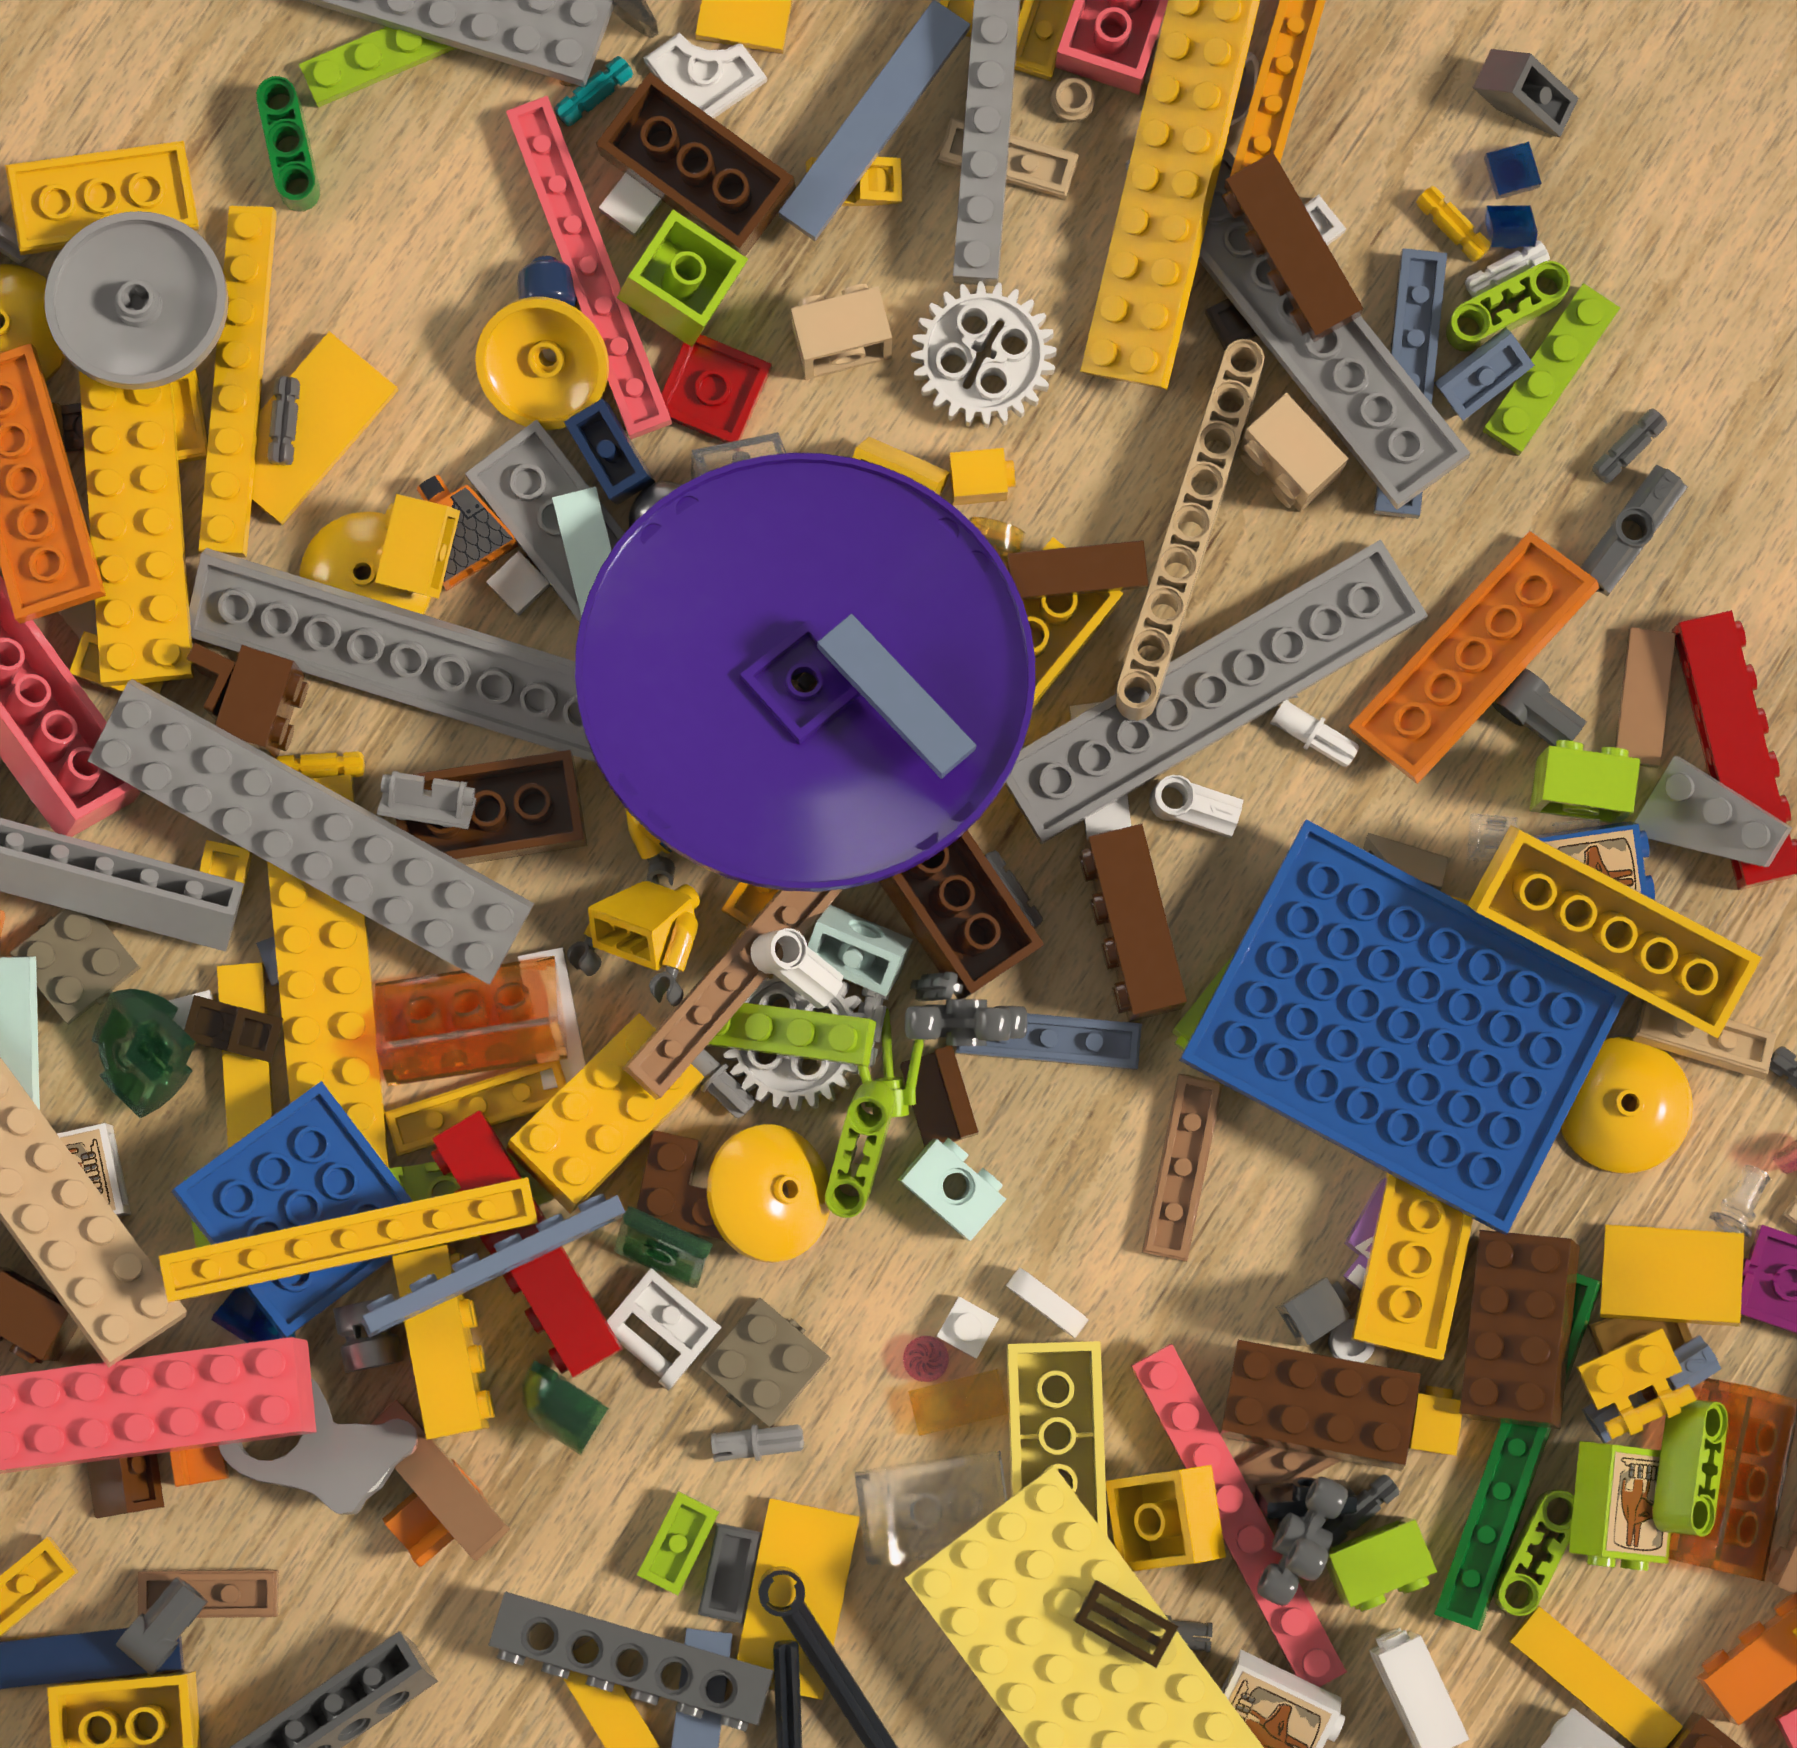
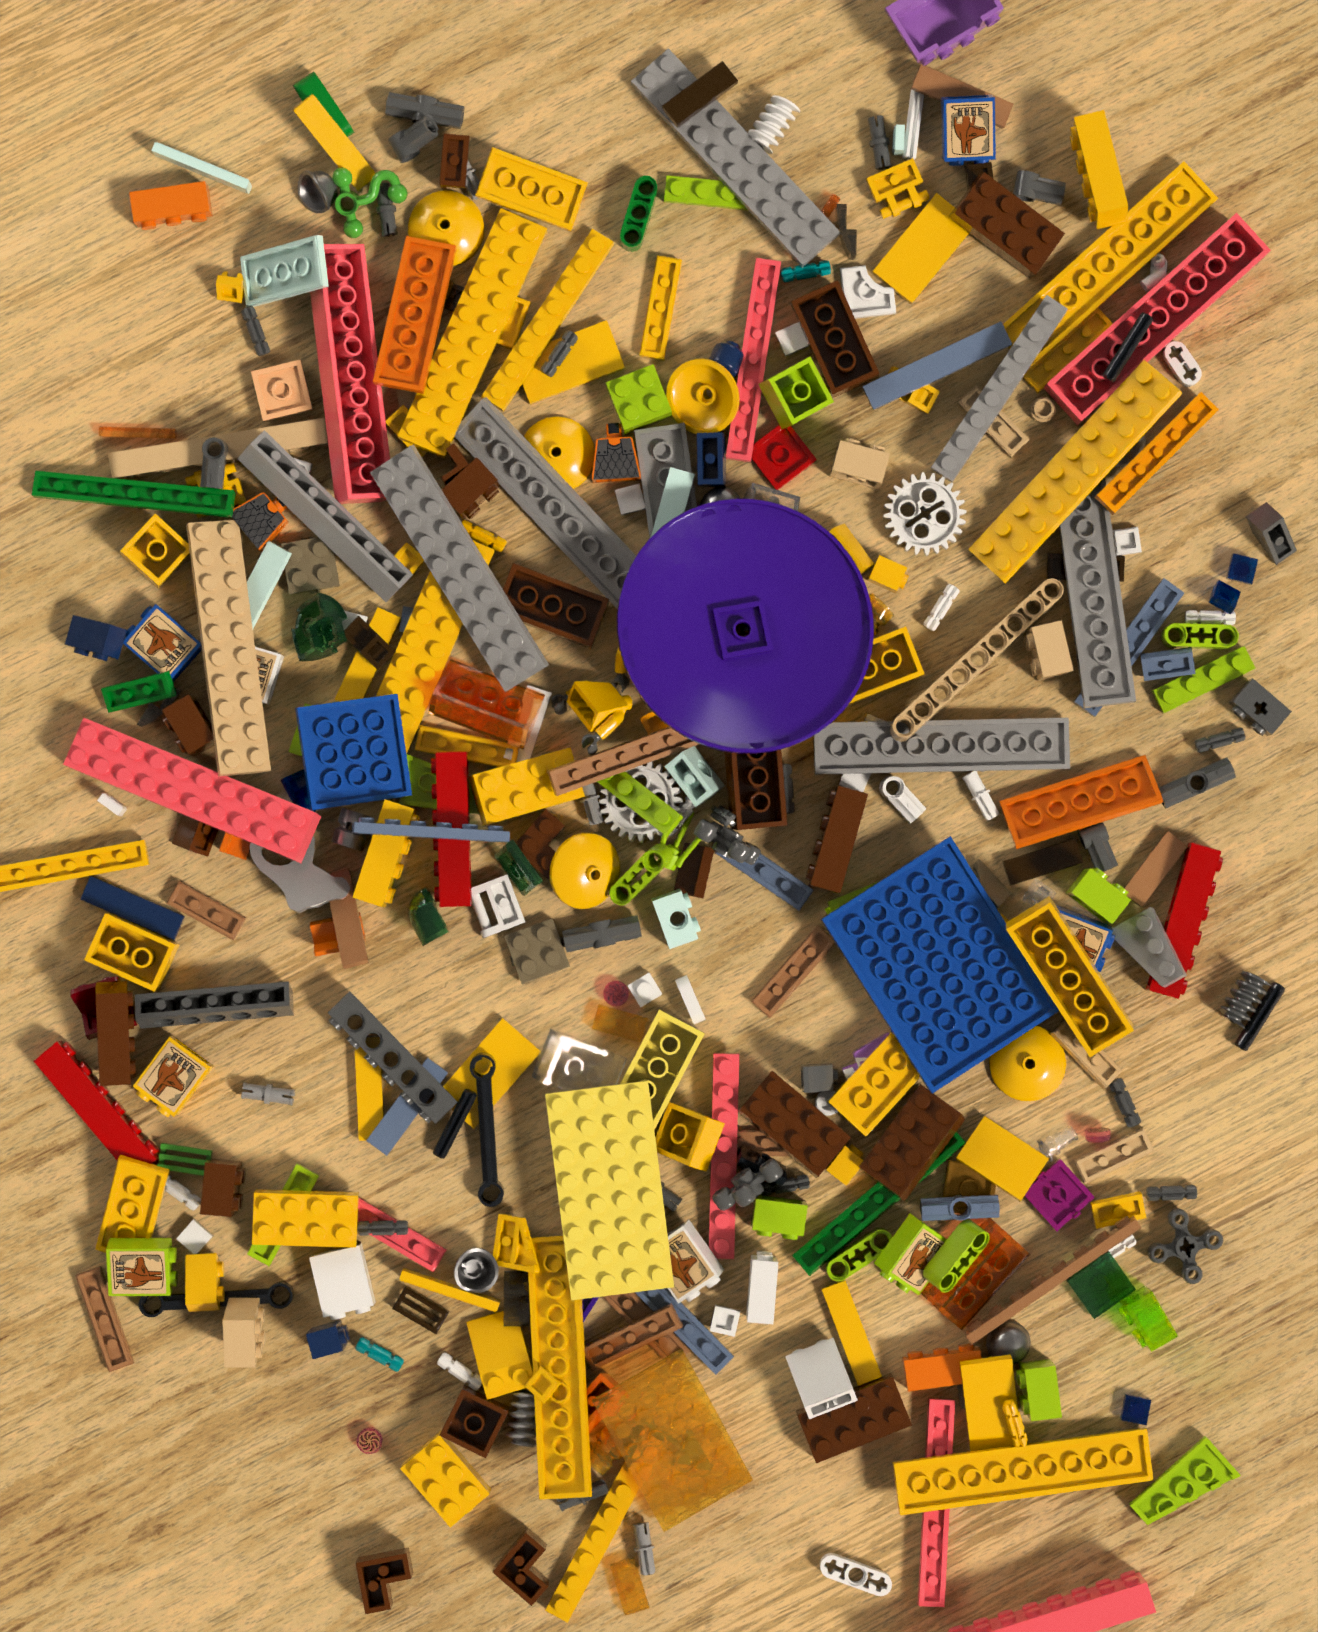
camera: 30 degrees right, 5 degrees up
(136, 300) = (519, 253): light grey dish -> none
(155, 1634) = (170, 916): dark grey piece -> none
(347, 1240) = (367, 780): yellow plate -> none
(401, 268) = (660, 307): none -> yellow tile
(406, 799) = (516, 580): light grey hinge -> none
(416, 546) = (589, 454): yellow brick -> none
(445, 422) = (639, 399): none -> lime brick
(678, 1543) = (446, 1014): lime plate -> none
(730, 1573) = (463, 1043): dark grey tile -> none
(756, 1442) = (511, 987): light grey axle -> none
(799, 966) = (660, 769): white piece -> none
(851, 1277) = (602, 933): none -> dark grey piece
(896, 696) = (782, 664): sand blue tile -> none
(1079, 570) = (909, 650): reddish brown tile -> none
(1089, 482) = (941, 607): none -> white axle
(1091, 1604) = (651, 1195): dark brown tile -> none
(1292, 247) = (1106, 549): reddish brown brick -> none
(1453, 223) = (1197, 579): yellow axle -> none
(1468, 782) = (1042, 862): none -> dark brown tile
(1632, 1369) = (955, 1193): yellow plate -> none
(1683, 355) = (1273, 710): none -> dark grey brick

